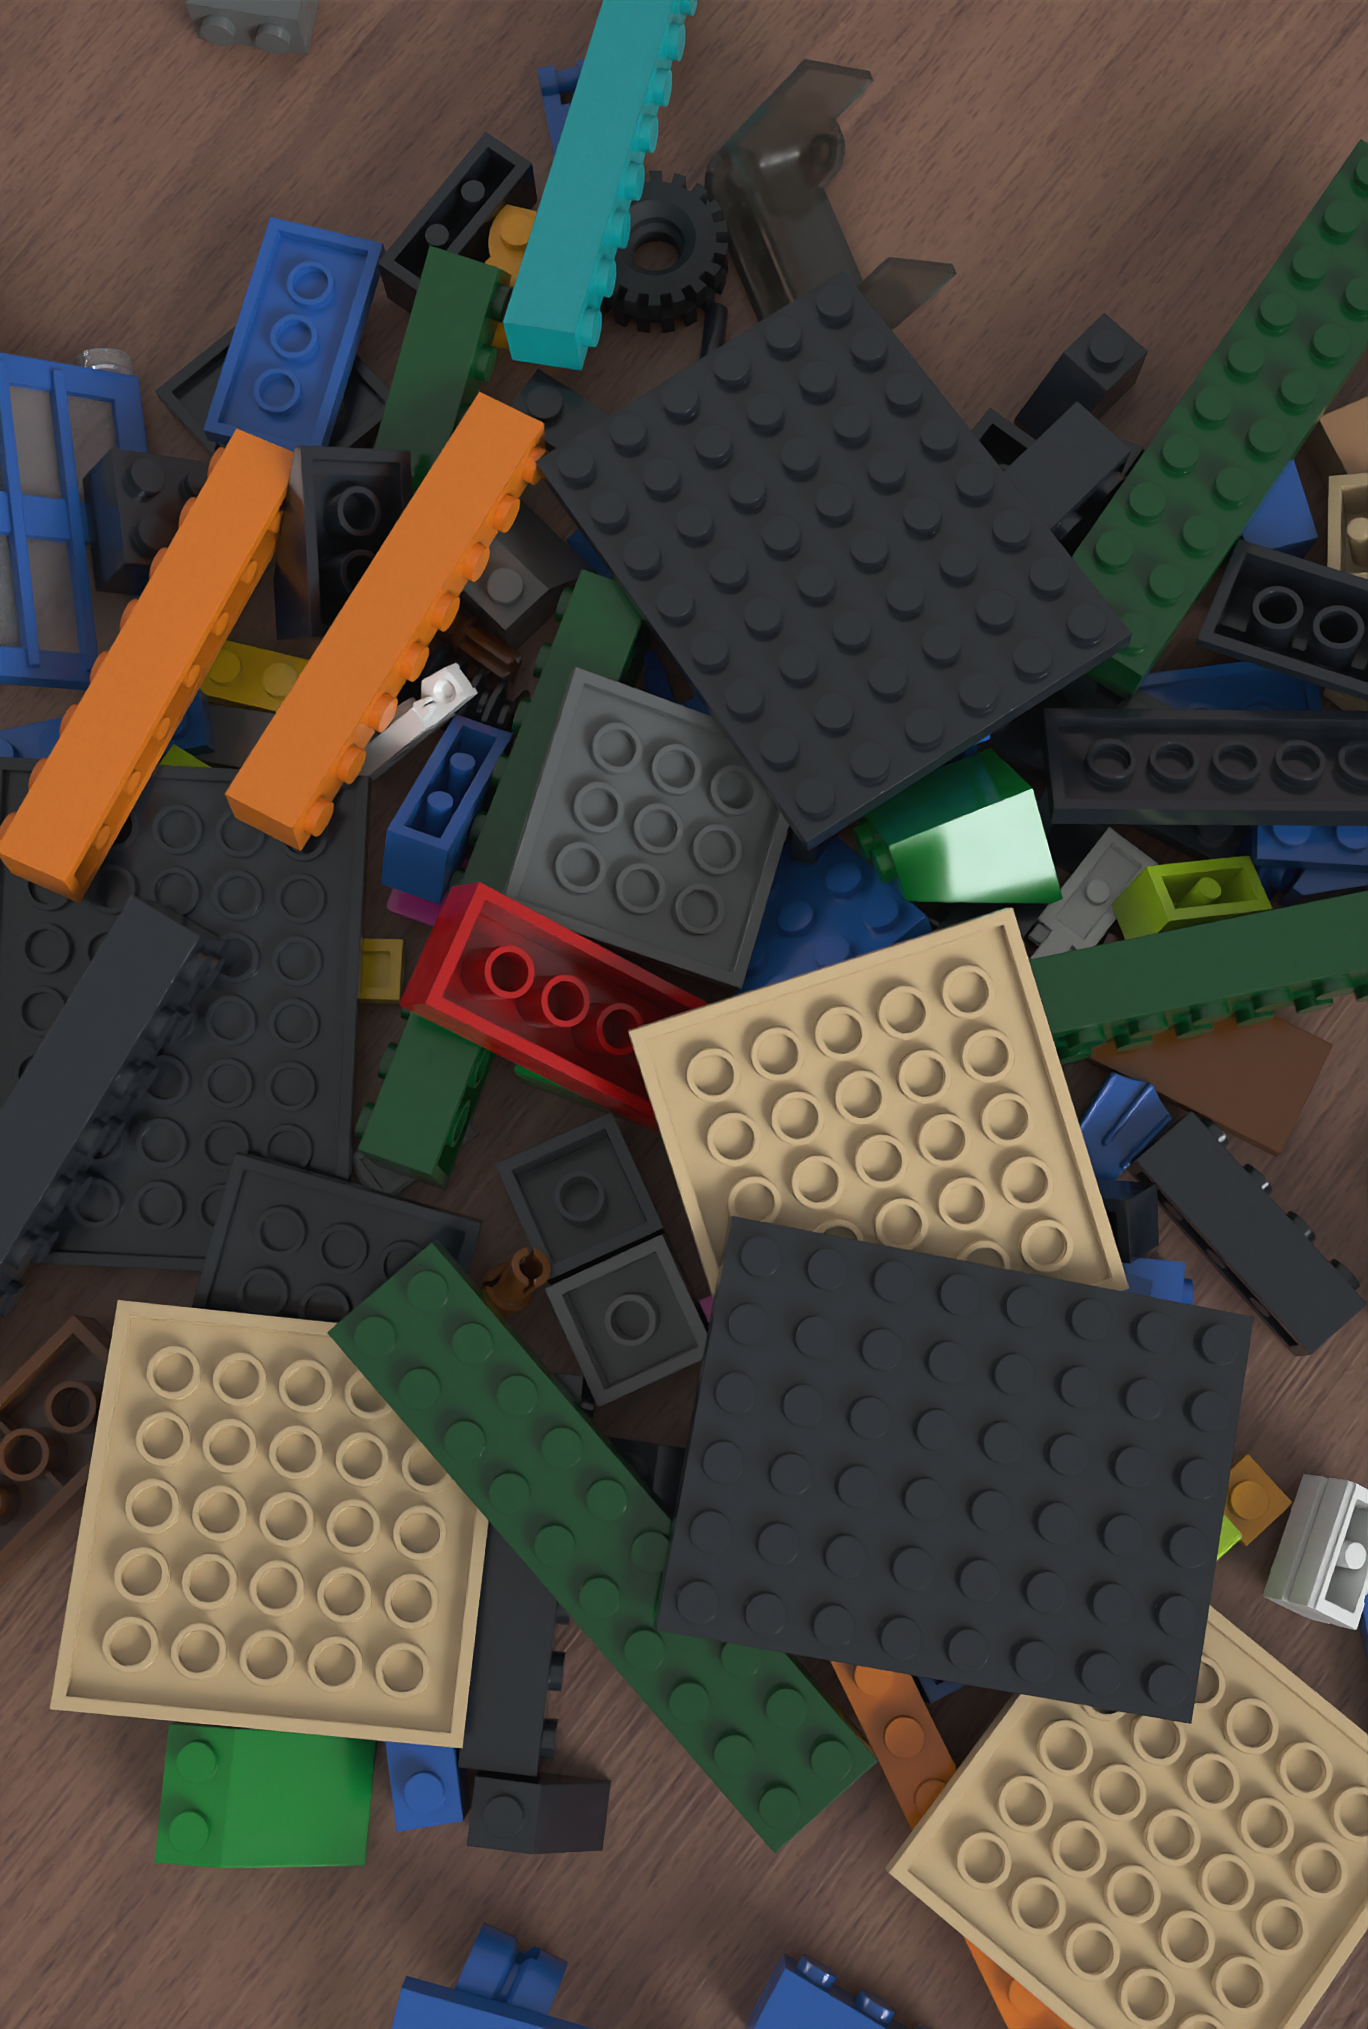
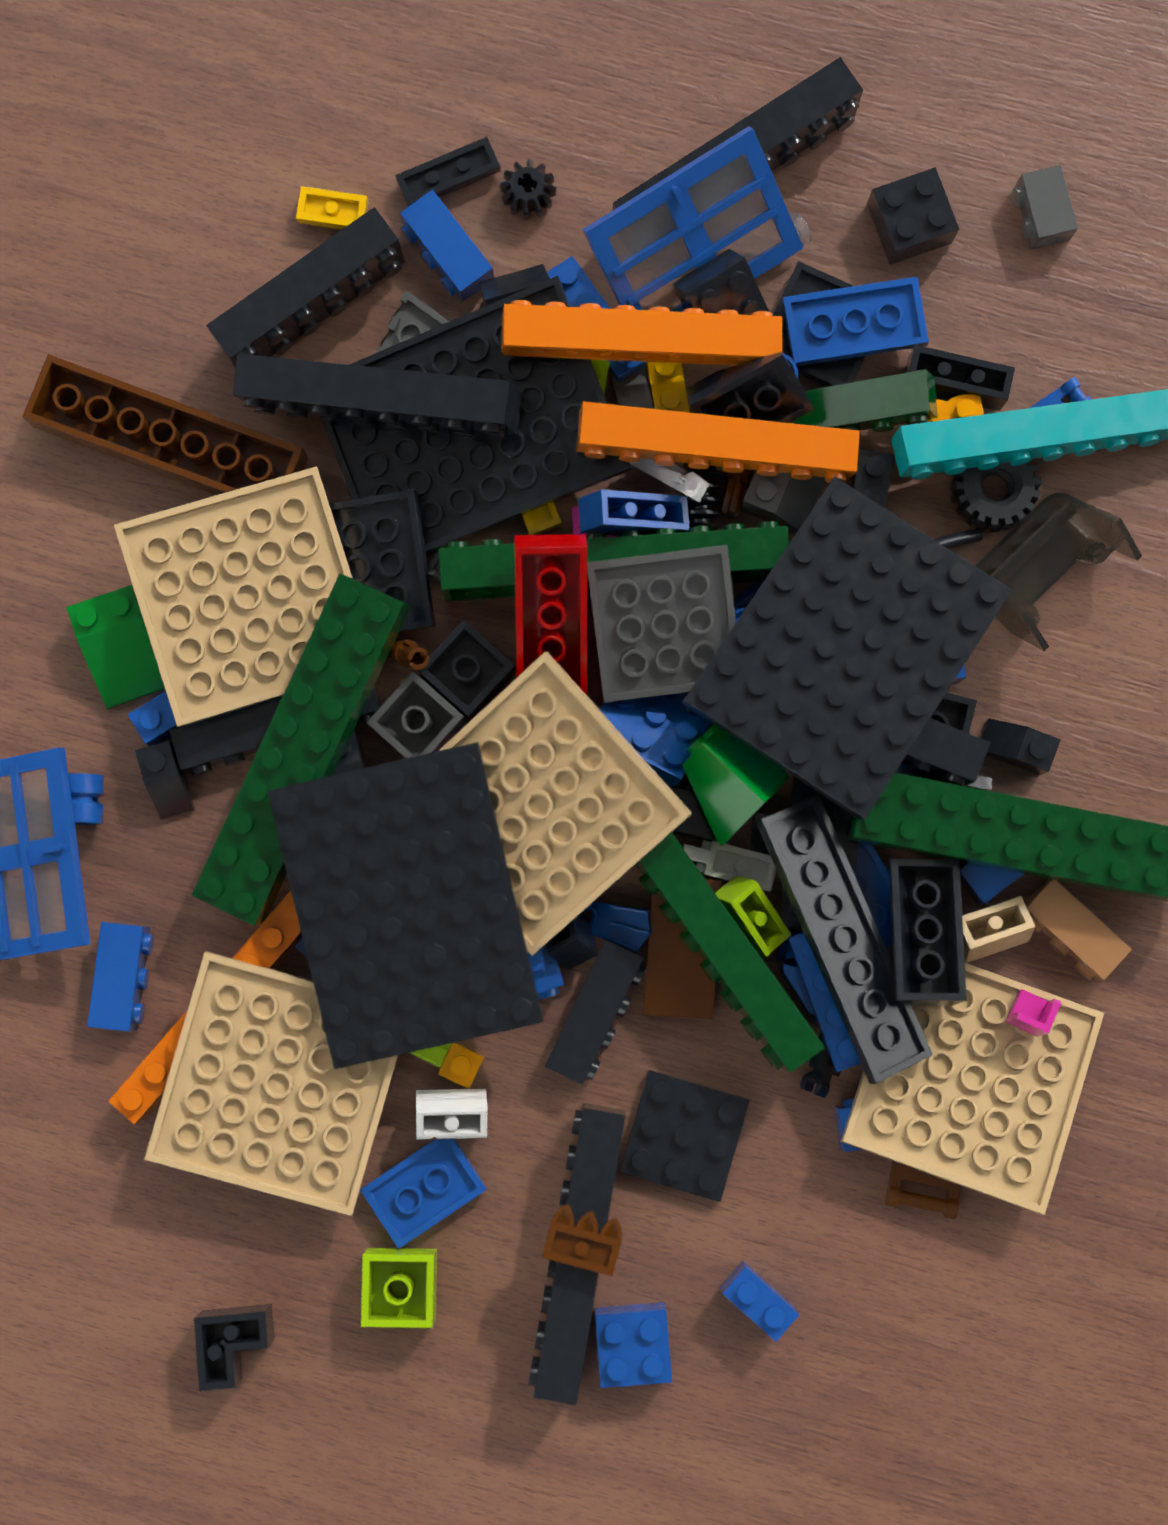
camera: 65 degrees right, 5 degrees up
(169, 192) = (912, 215): none -> black brick

